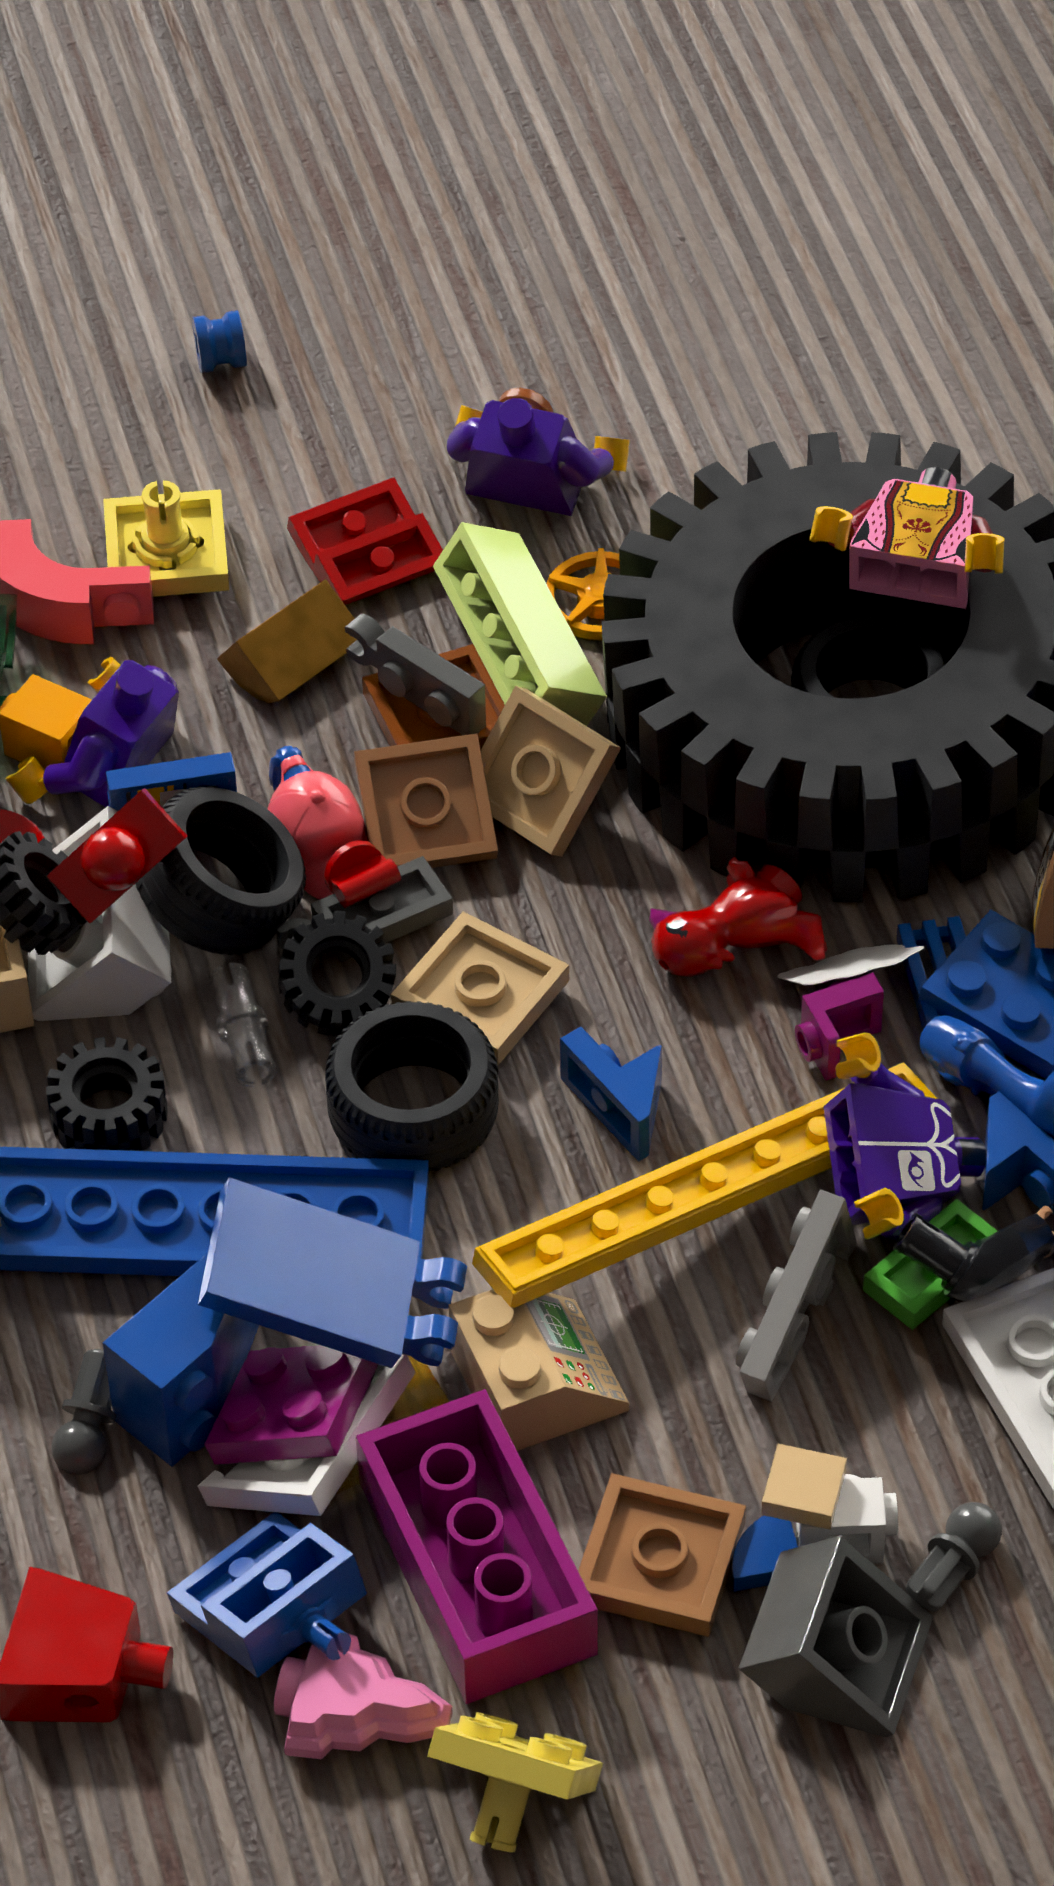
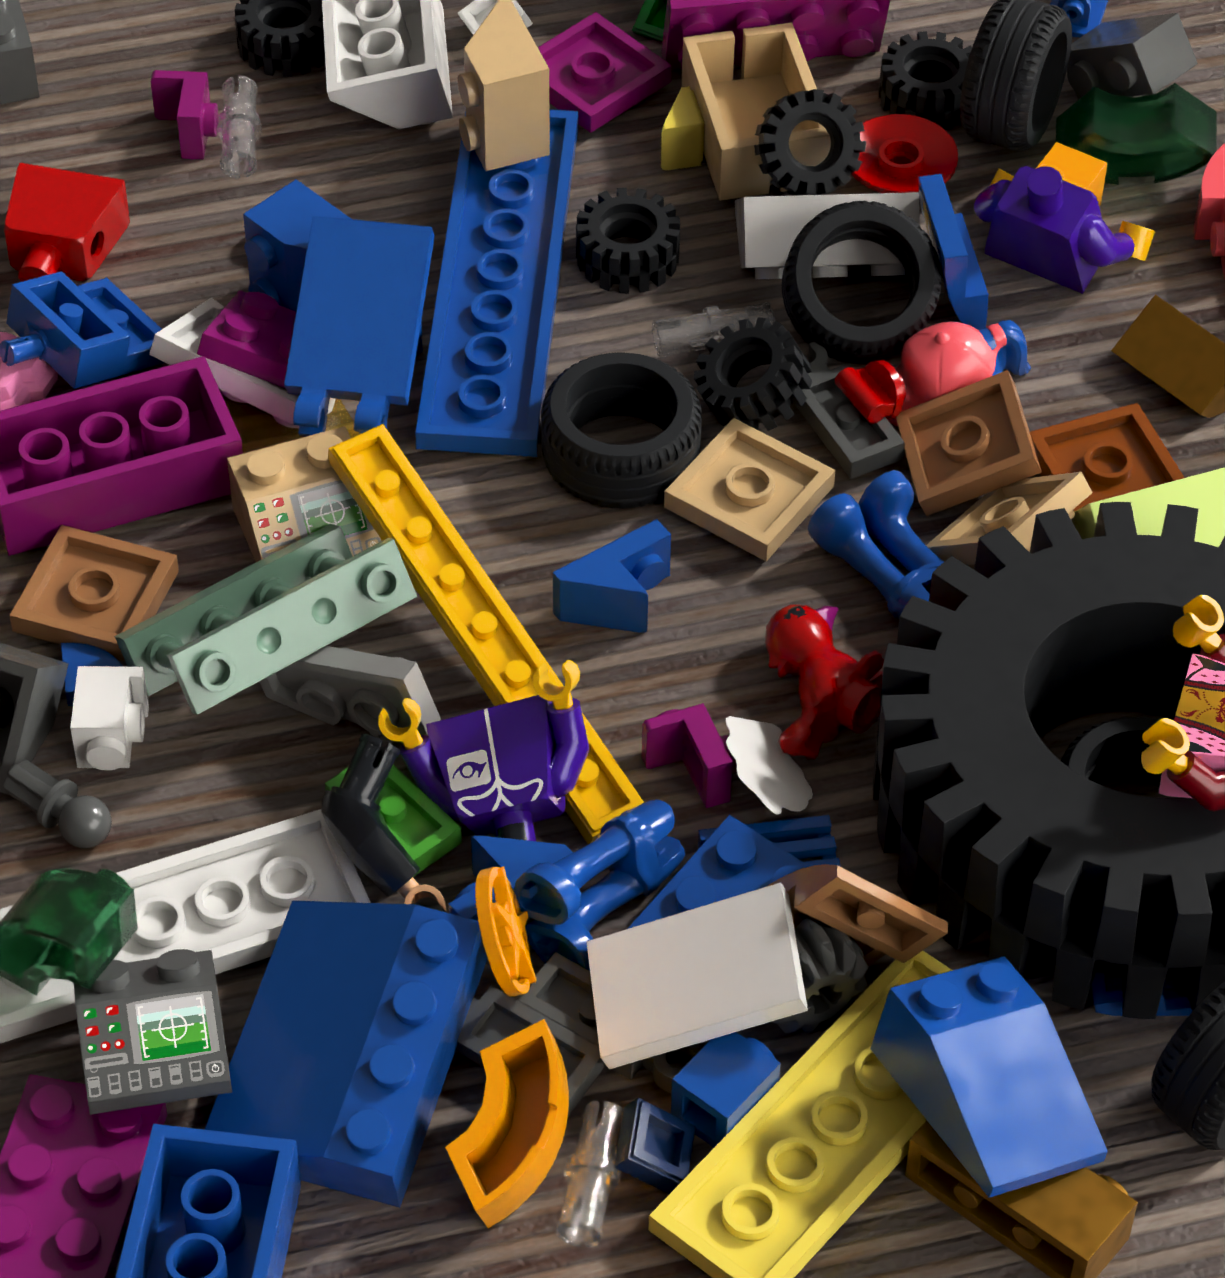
camera: 90 degrees right, 0 degrees up
(117, 856) = (821, 167): red tile -> none
(419, 675) = (1118, 420): dark grey plate -> none
(614, 841) = (845, 531): none -> blue piece
(664, 1379) = (266, 617): none -> sand green fence
(804, 1486) = (110, 660): tan tile -> none

